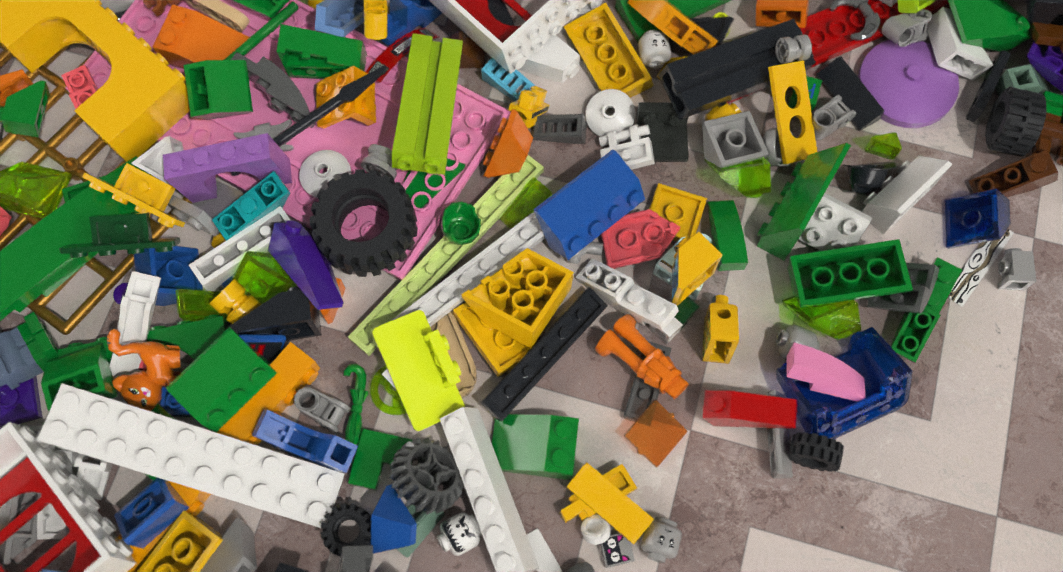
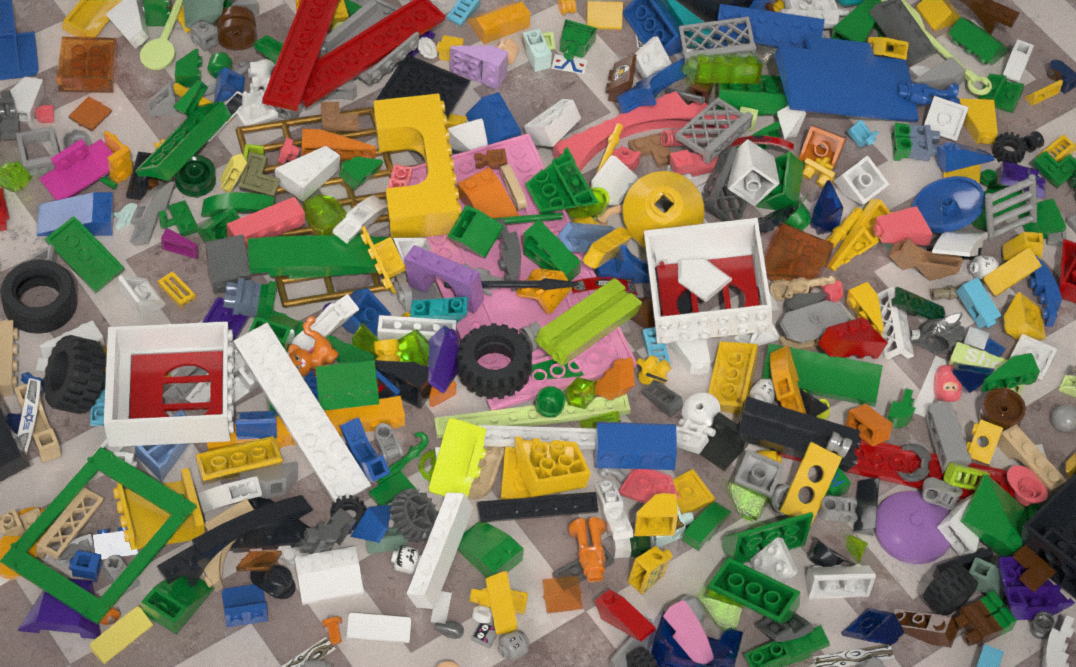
camera: 35 degrees right, 15 degrees down
(69, 165) = (361, 215): none -> white slope
(120, 232) = (358, 271): dark green bracket -> none
(309, 174) = (504, 314): white dish -> none
(482, 187) = (581, 393): none -> clear neon green brick

